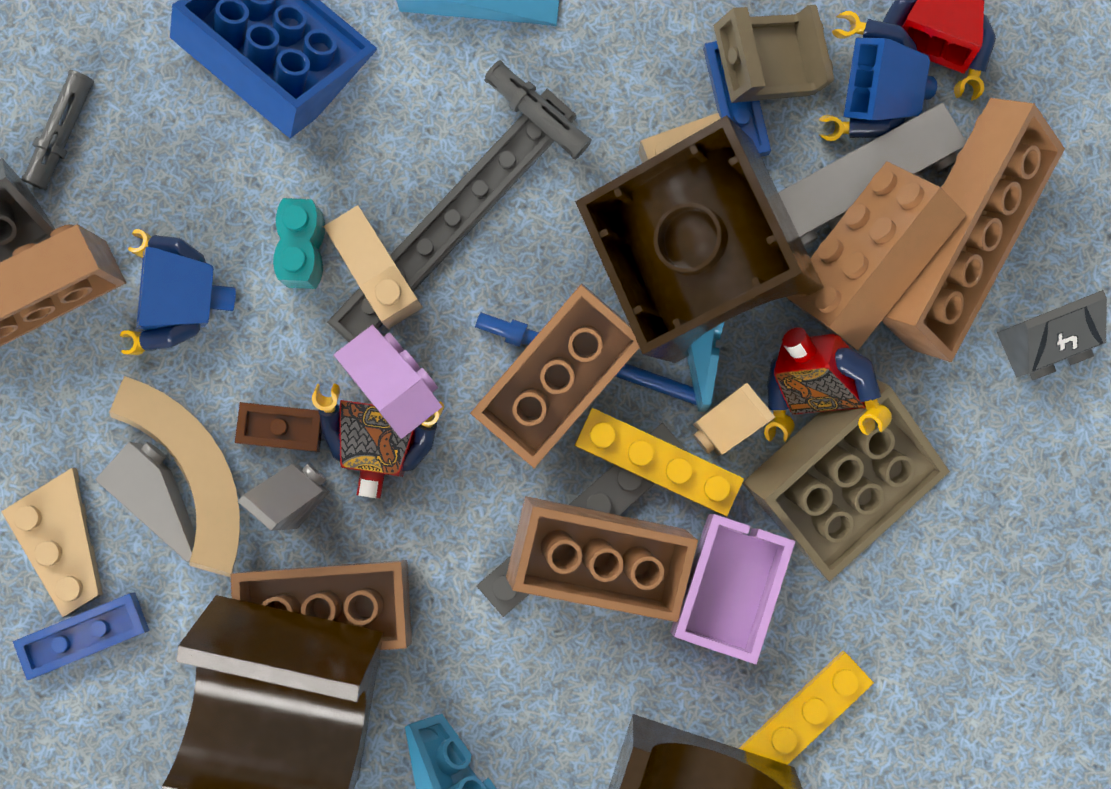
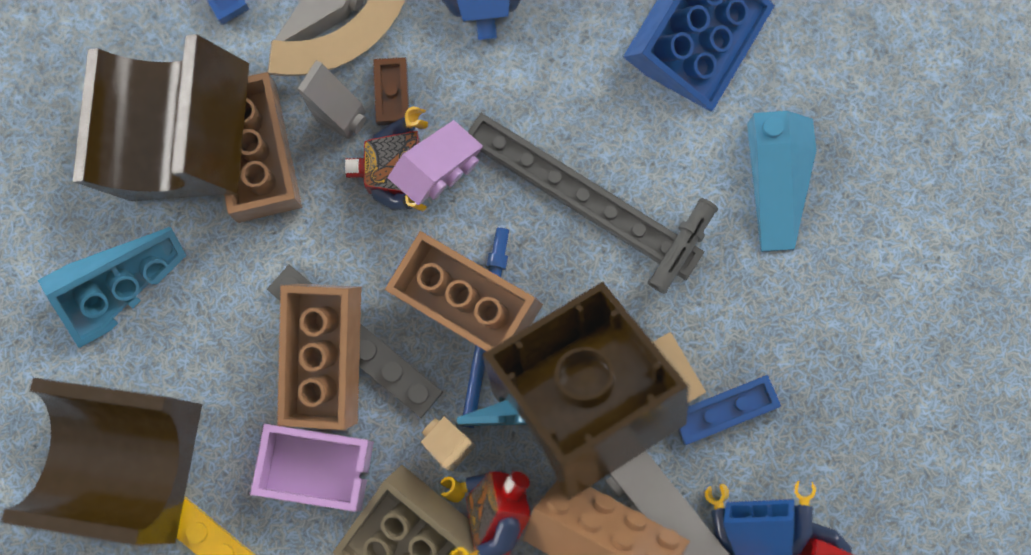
camera: 80 degrees right, 5 degrees down
(301, 233) = (546, 78): teal brick -> none
(372, 267) = (527, 138): tan slope -> none
(659, 462) = (406, 392): yellow plate -> none
(773, 54) = (768, 433): dark tan panel -> none

